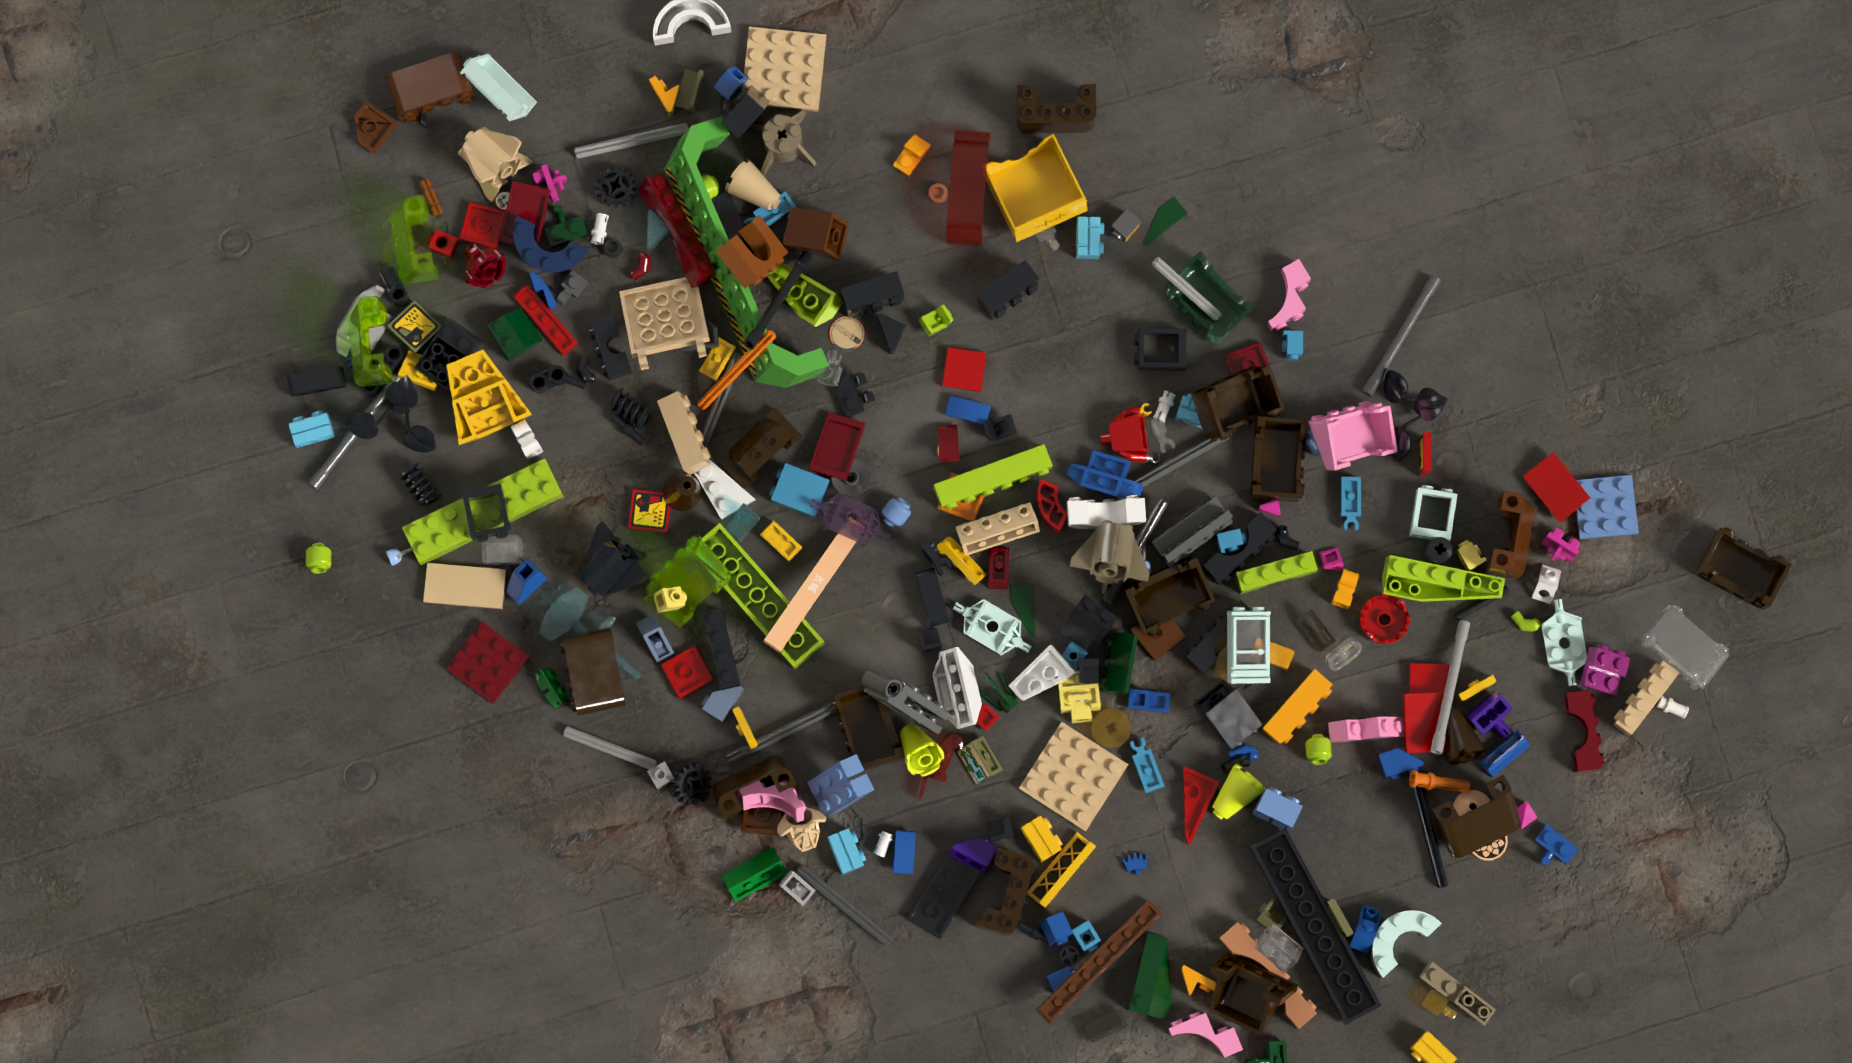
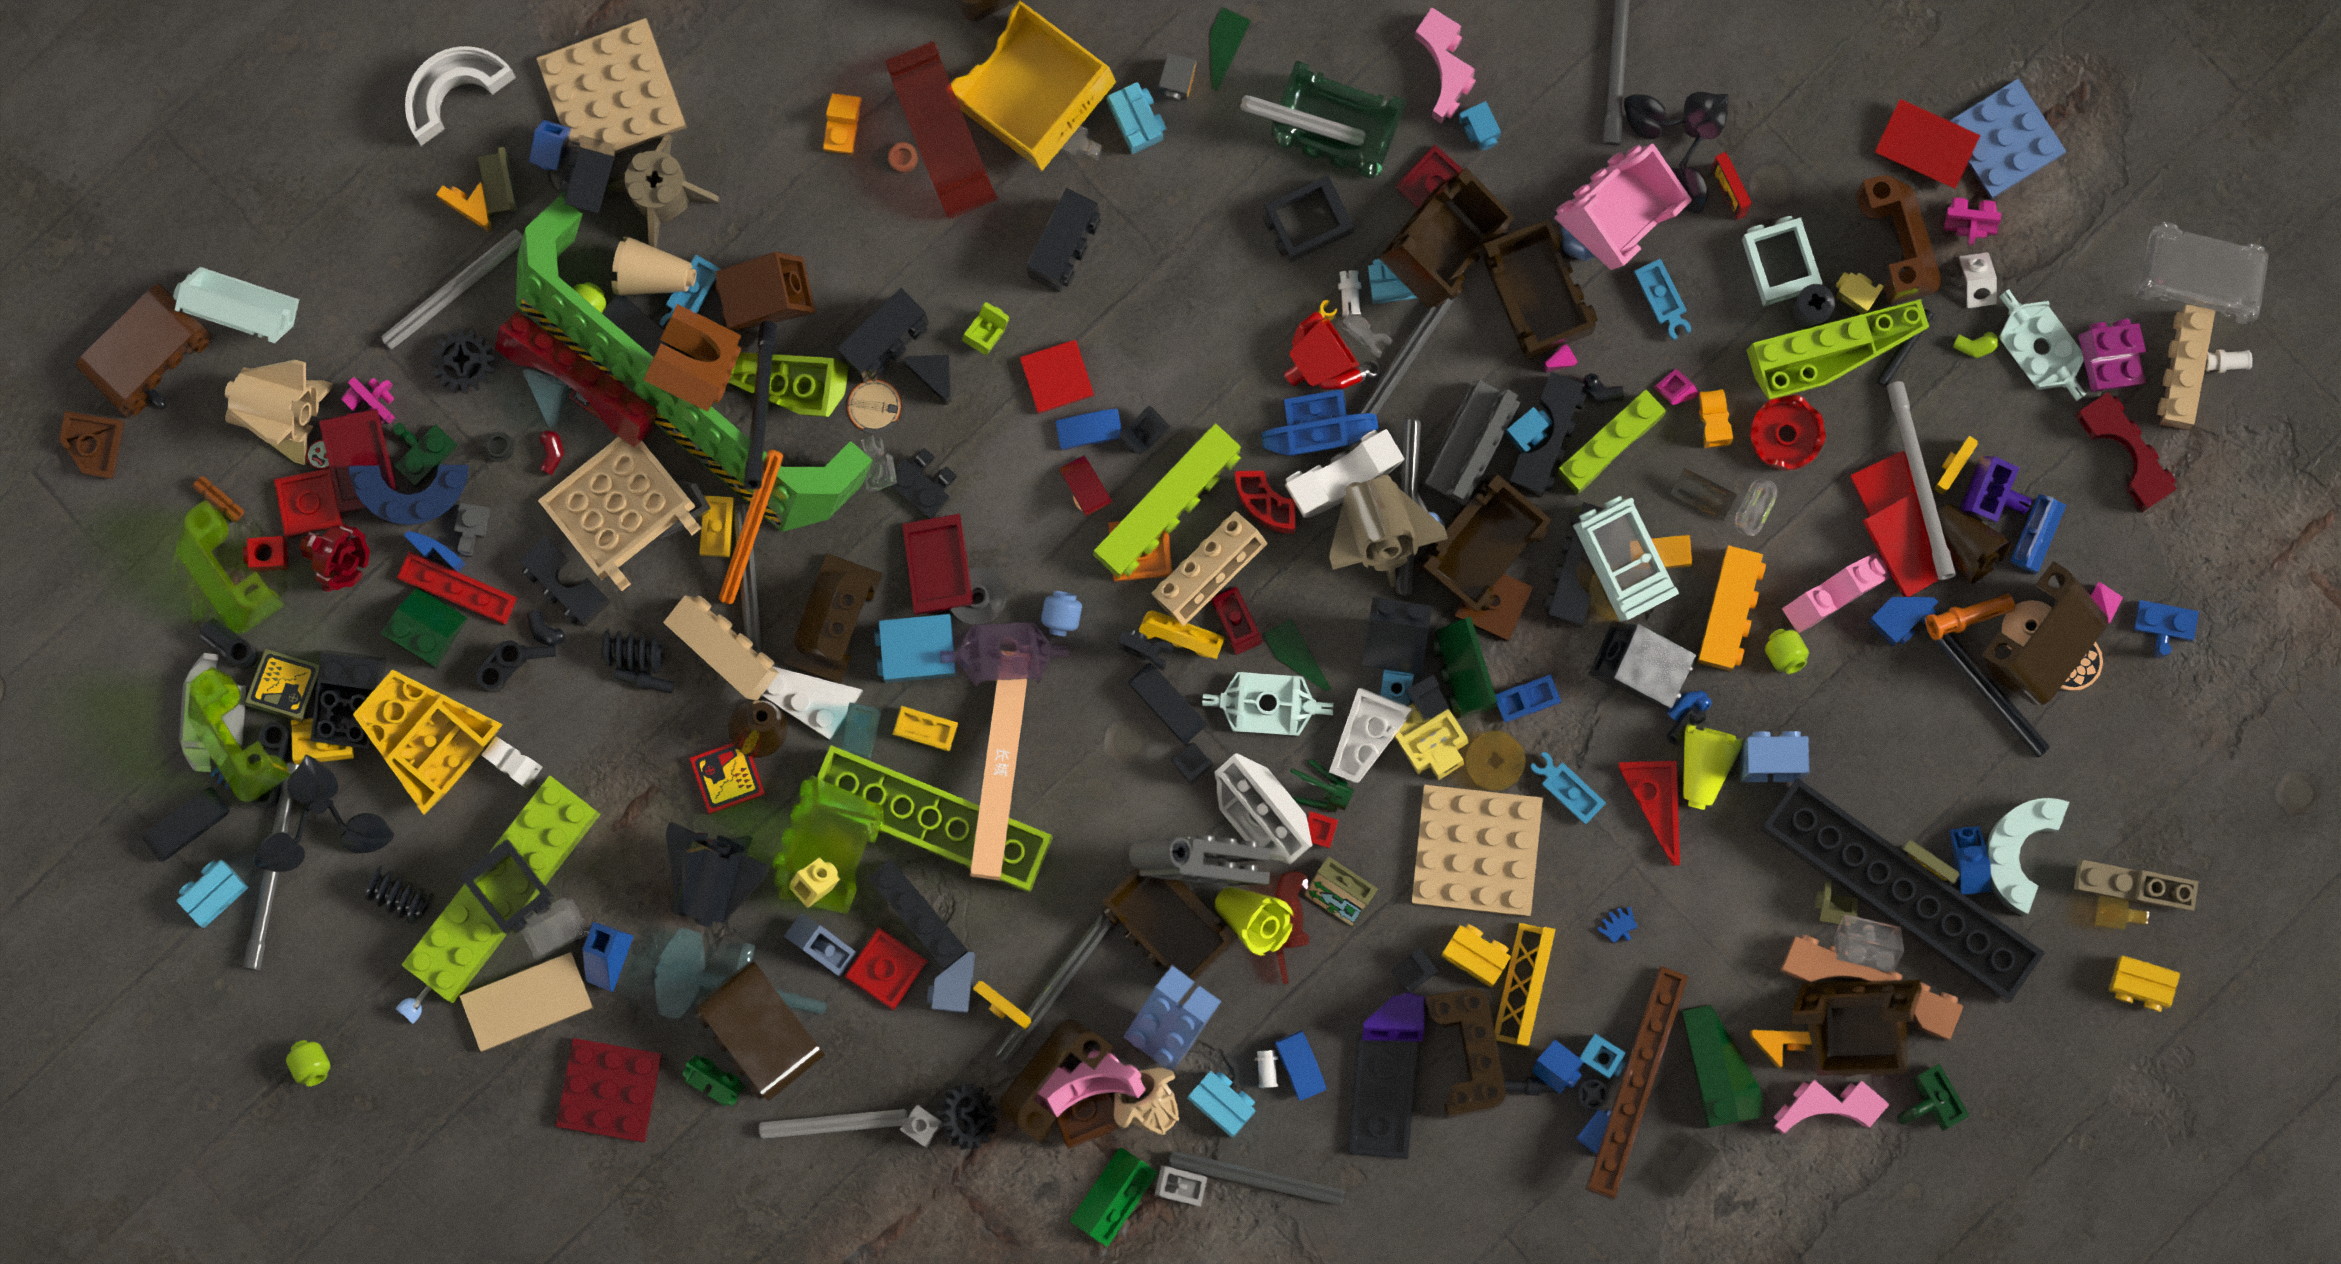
camera: 20 degrees left, 0 degrees up
(598, 233) = (471, 434): white pin -> none
(1742, 570) = (2229, 132): dark brown windscreen -> none

